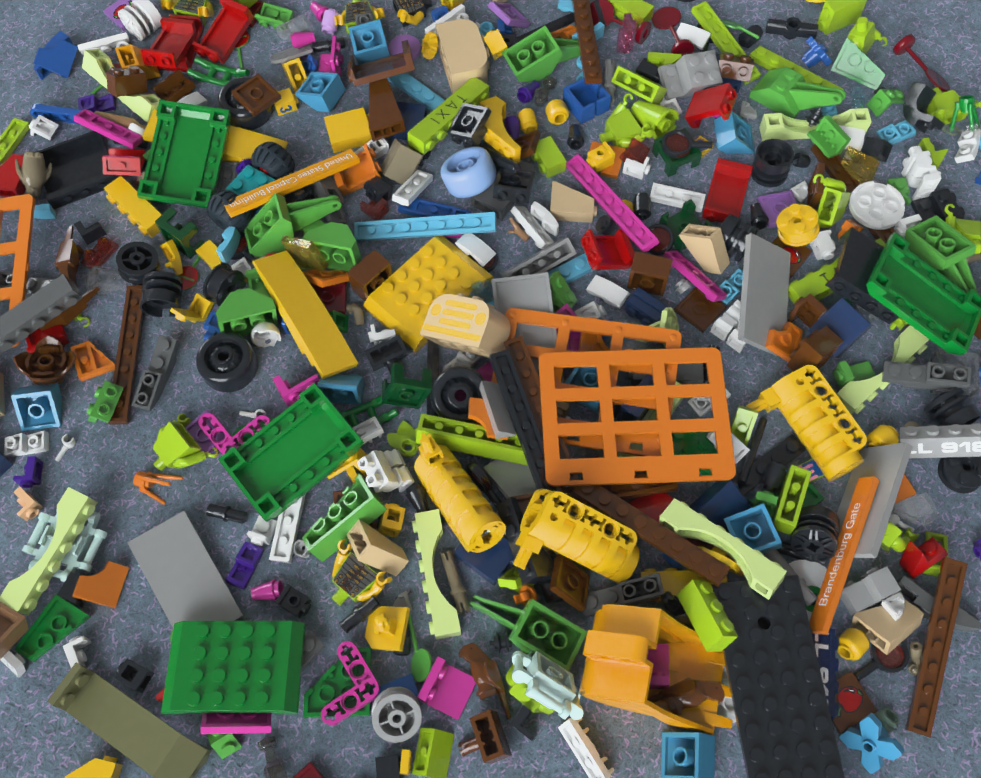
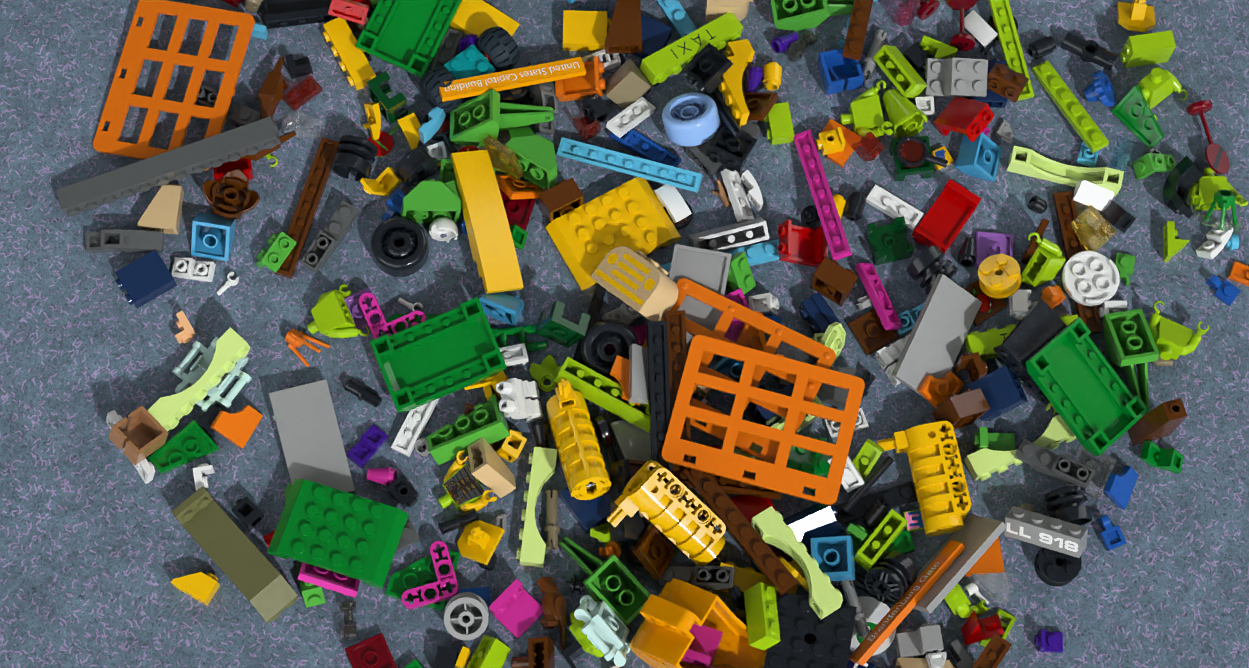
camera: 10 degrees right, 5 degrees up
(32, 471) = (194, 300): dark purple bracket -> none
(90, 361) = (271, 205): orange wing -> none
(136, 260) = (338, 116): black wheel -> none
(262, 531) = (391, 420): white bracket -> none
(291, 394) = (454, 300): dark pink bracket -> none
(358, 313) = (538, 233): dark tan arm -> none
(381, 336) = (555, 267): white bracket -> none
(386, 353) = (553, 285): black brick -> none
(421, 661) = (501, 578): bright green piece -> none
(483, 290) = (663, 251): clear light blue plate -> none
(557, 112) = (805, 75): yellow head -> none
(571, 204) = (783, 183): tan slope -> none
(575, 138) = (814, 109): black cone -> none
(608, 291) = (788, 286): white slope -> none
(636, 169) = (862, 162): white bracket -> none
(665, 238) = (860, 246): piece -> none
(707, 247) = (899, 272): tan slope -> none
(735, 25) = (1030, 28): bright green piece -> none
(772, 162) = (1002, 200): black wheel -> none
(789, 94) = (1053, 128): bright green slope -> none
(800, 191) = (1021, 238): white tile -> none
(815, 116) = (1067, 162): black wheel -> none
(829, 137) = (1070, 192): bright green bracket -> none
(883, 436) = (994, 509): yellow head -> none
(896, 133) = (1147, 205): medium azure slope -> none
(920, 172) = (1148, 258): white hips -> none
(935, 205) = (1145, 295): black plate -> none

